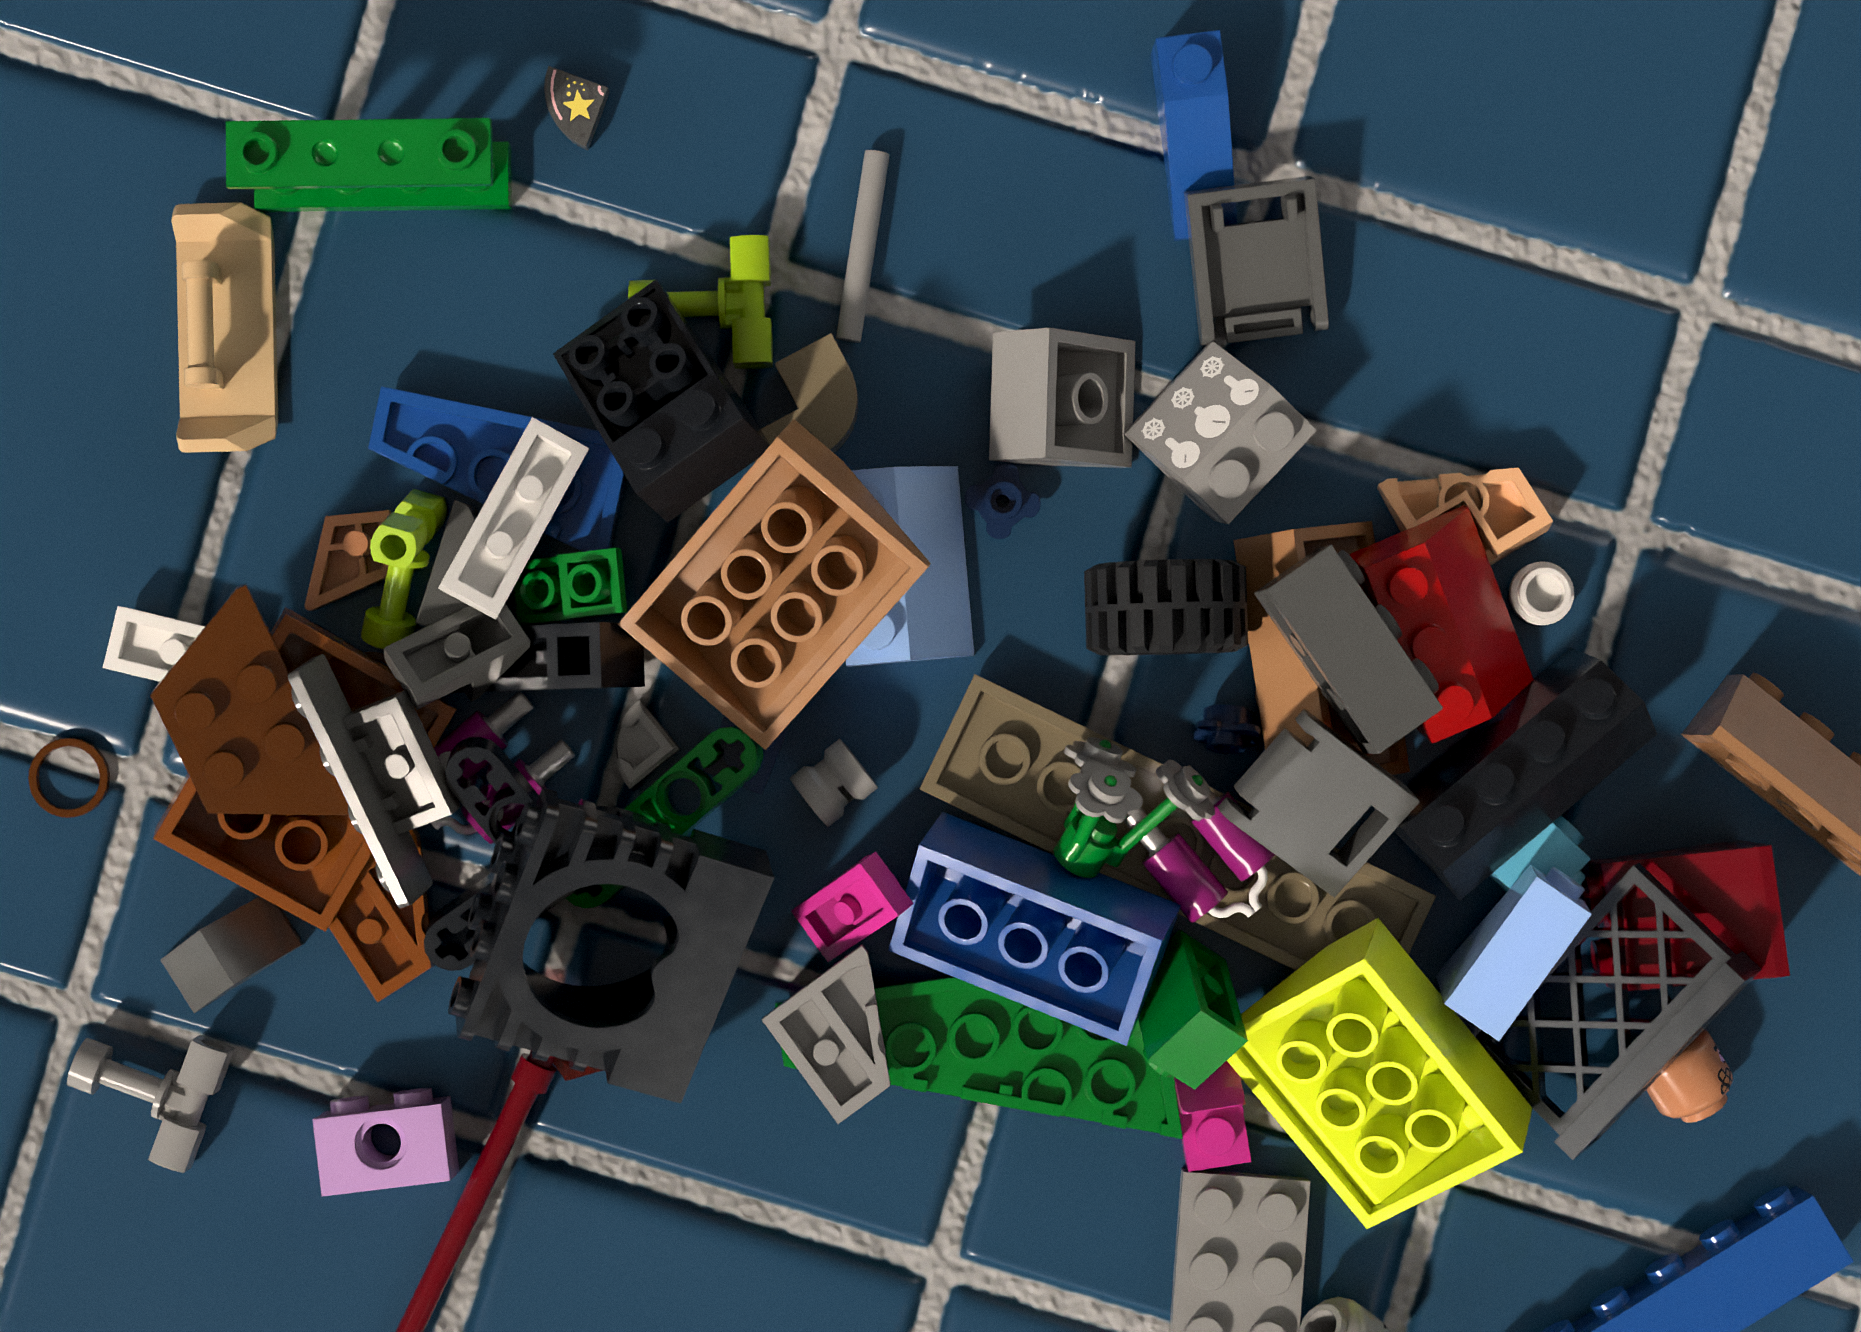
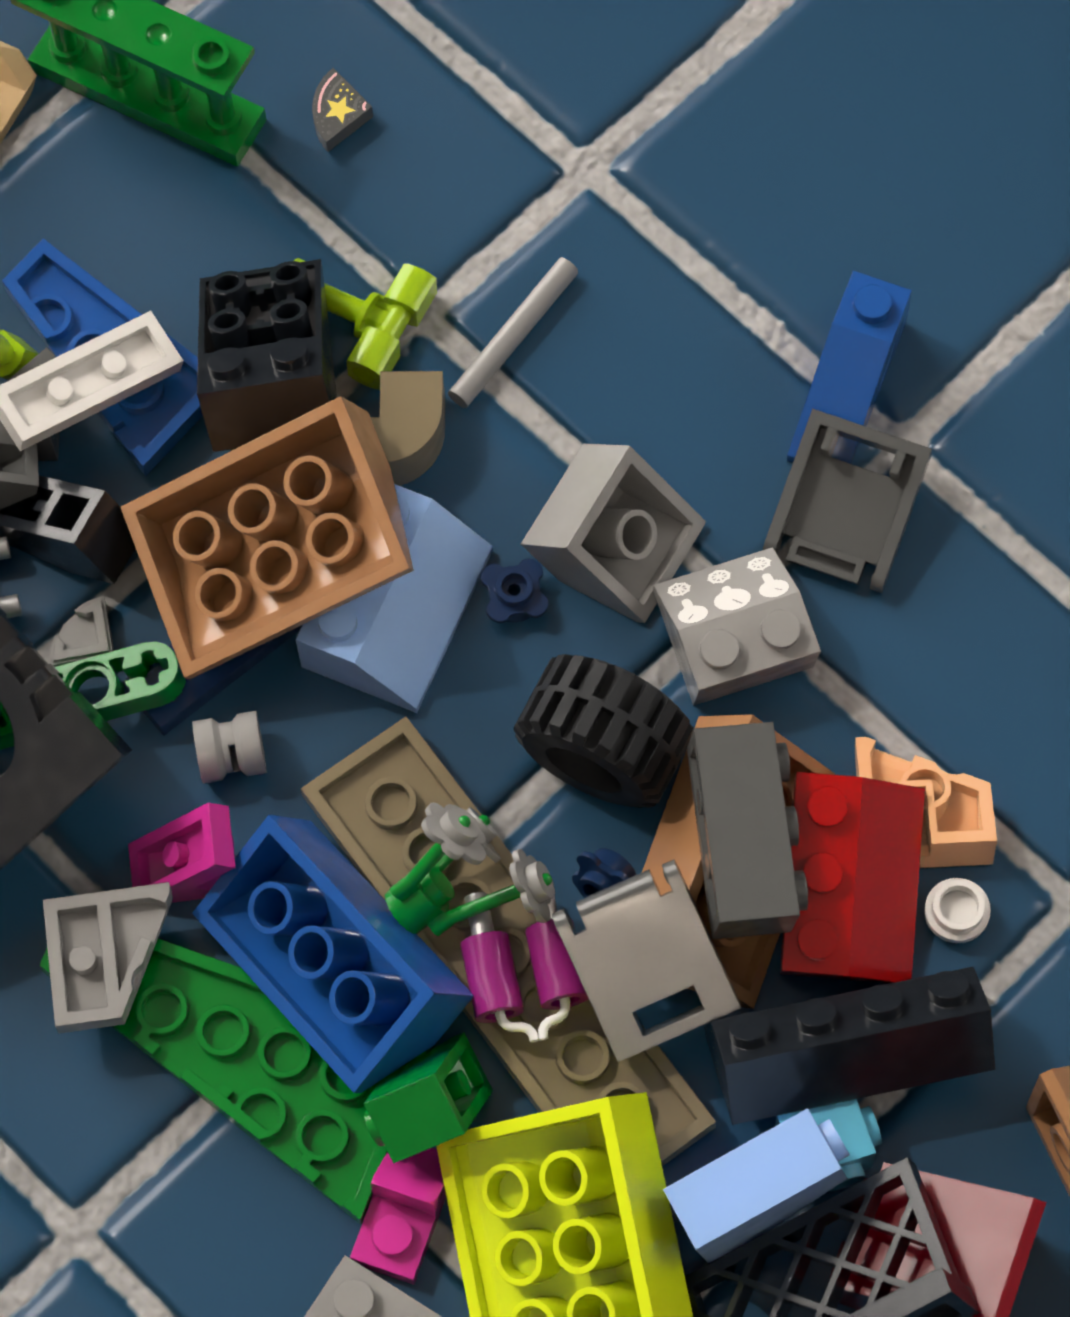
camera: 30 degrees right, 20 degrees down
(571, 587) = (109, 464): green slope -> none

